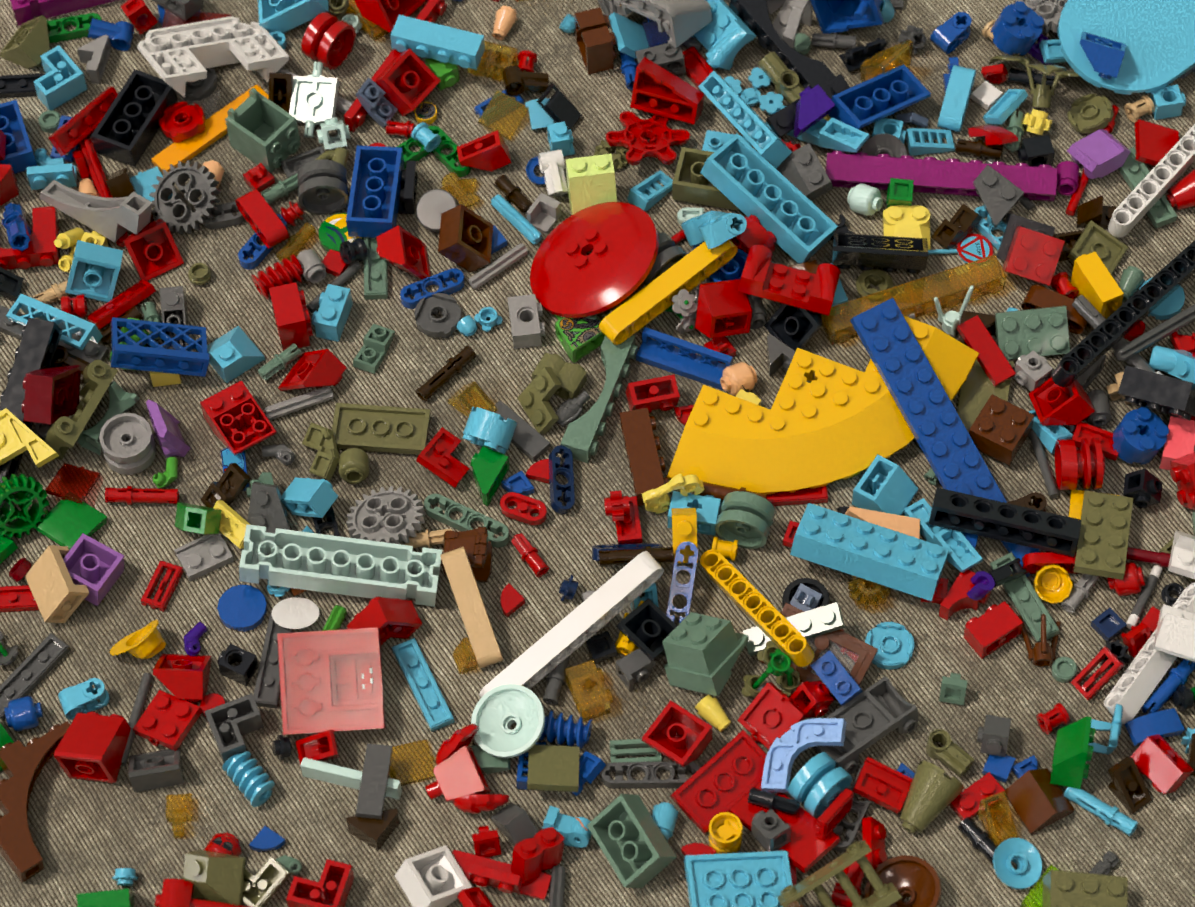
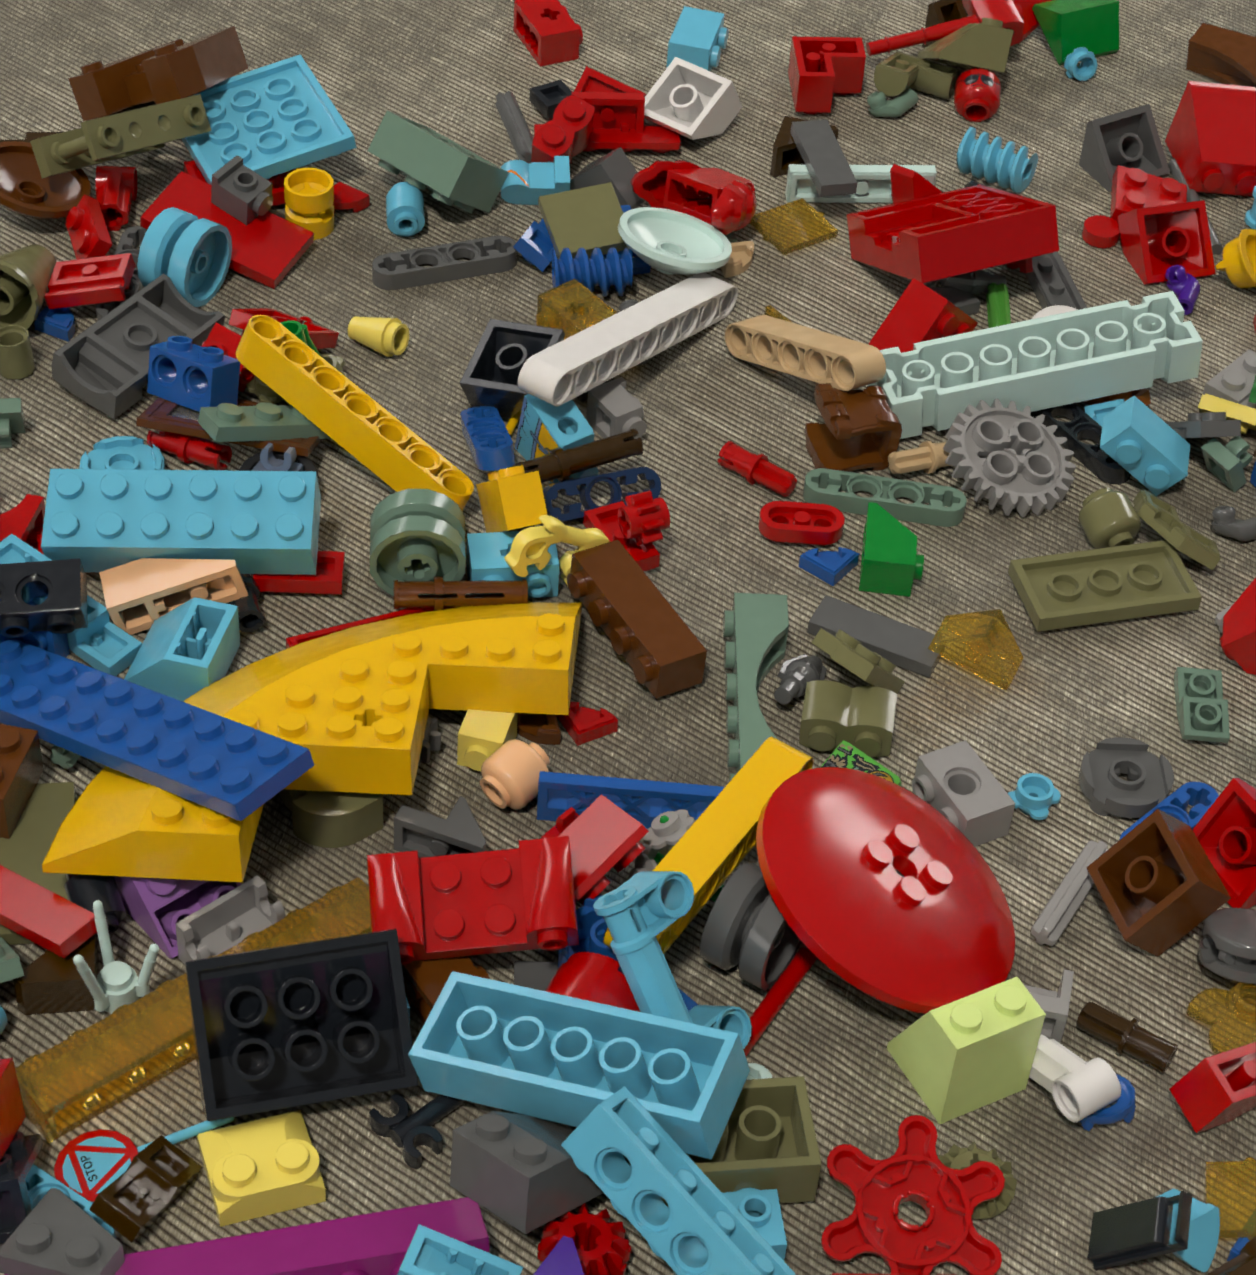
camera: 155 degrees right, 15 degrees down
(178, 810) = (1060, 132): clear yellow plate -> none
(232, 721) = (1060, 182): dark grey brick -> none
(242, 672) = (1101, 266): black brick -> none
(266, 841) = (928, 124): blue tile -> none
(423, 684) = (821, 299): medium azure tile -> none
(438, 458) = (979, 550): red plate -> none
(453, 367) = (1045, 699): dark brown pin -> none
(467, 326) = (1062, 770): medium azure hinge -> none
(486, 842) = (642, 150): red tile -> none
(489, 430) = (934, 599): medium azure brick -> none
(498, 240) = (1107, 943): blue tile -> none
(511, 600) = (755, 414): red tile -> none
(516, 219) = (1089, 988): medium azure axle -> none
(539, 471) = (801, 586): red tile -> none
(555, 488) = (759, 555): dark blue beam -> none
(560, 138) = (1098, 1164): medium azure brick -> none
(568, 588) = (672, 433): dark blue plate -> none
(617, 748) = (477, 283): sand green tile -> none
(640, 199) = (865, 1083): medium azure slope -> none
(653, 394) = (663, 709): red brick -> none
(678, 734) = (418, 282): red slope -> none
(702, 653) = (418, 361): sand green piece -> none
(721, 781) = (332, 265): red tile -> none
(773, 801) = (256, 235): black axle -> none
(799, 738) = (242, 288): light blue plate -> none
(834, 813) = (161, 199): red tile -> none
(865, 199) = (370, 1188): light aqua head -> none
(899, 192) = (291, 1195): green brick -> none

